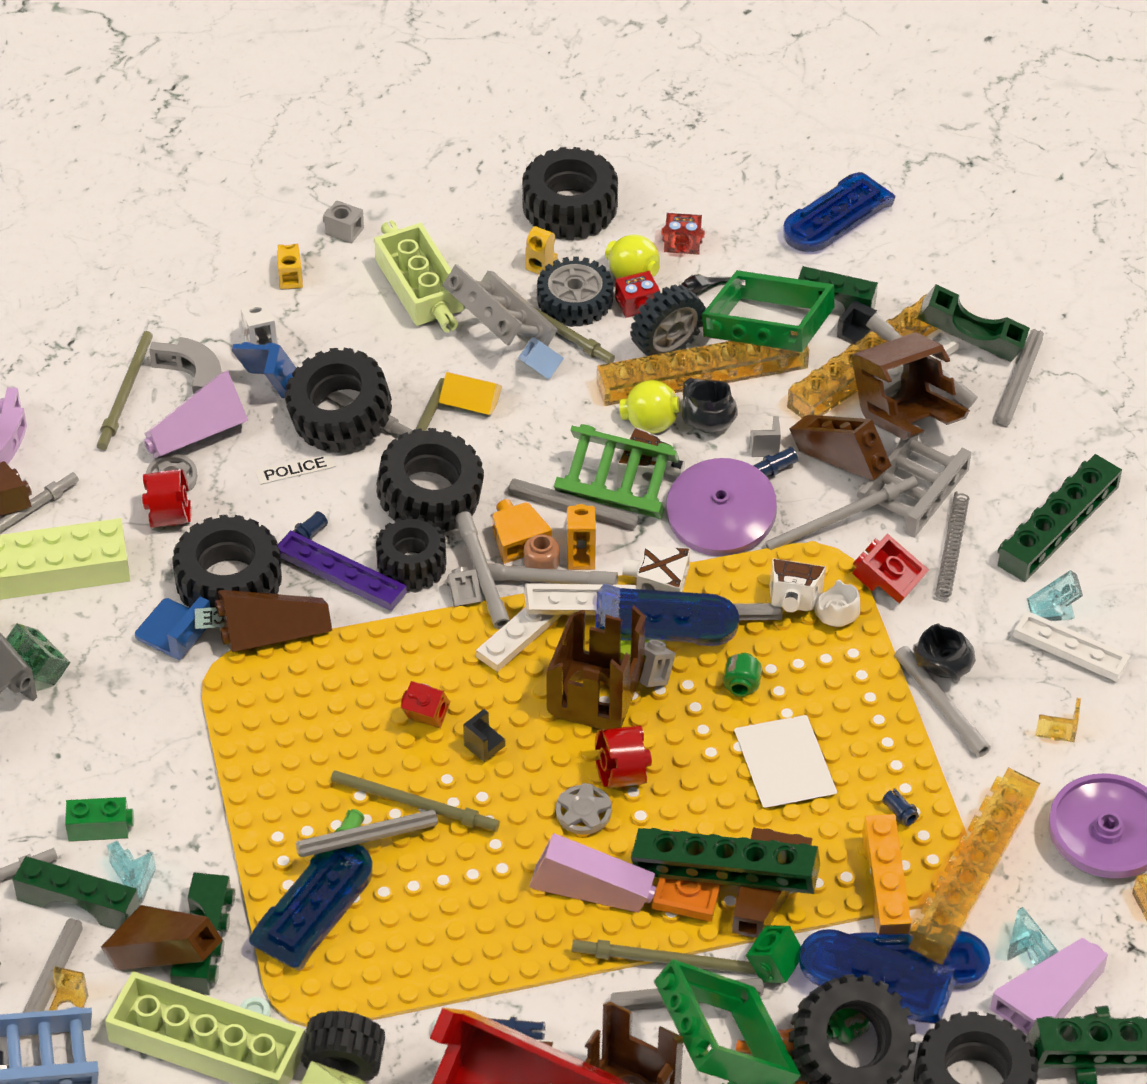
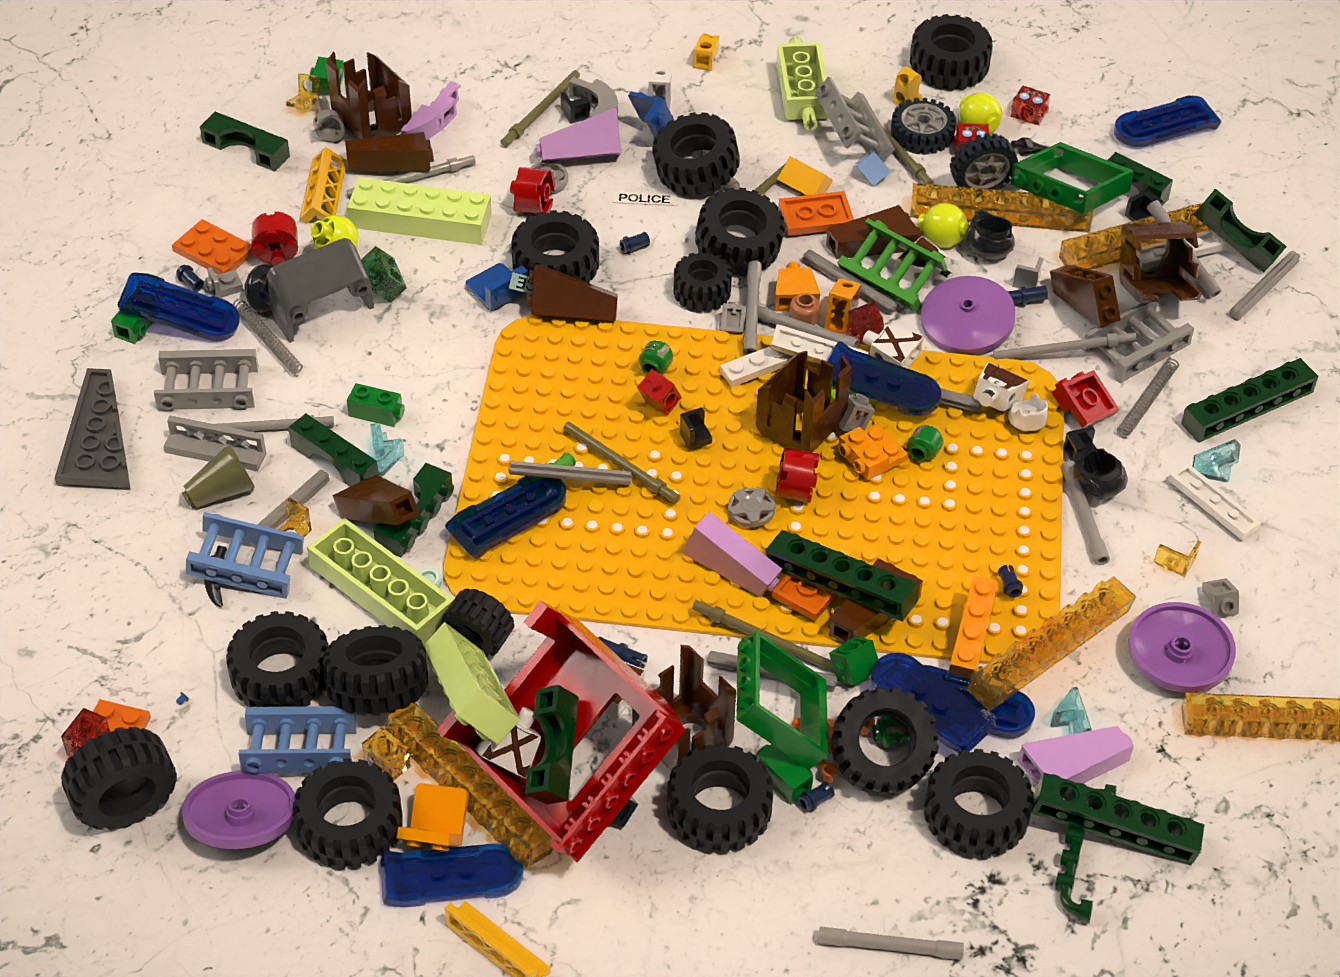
camera: 20 degrees right, 0 degrees up
(168, 380) = (575, 110): none -> black panel
(341, 570) = (643, 280): dark purple plate -> none
(343, 221) = (763, 30): light grey brick -> none
(401, 663) = (656, 356): none -> green head
(502, 430) = (814, 212): none -> orange plate
(555, 449) = (849, 236): none -> reddish brown slope
(614, 548) = (863, 319): none -> clear red head
(687, 701) = (871, 450): none -> light orange plate
(785, 761) = (932, 519): white sticker -> none
(904, 625) = (1079, 443): none -> black panel
(1124, 751) = (1223, 597): none -> light grey bracket

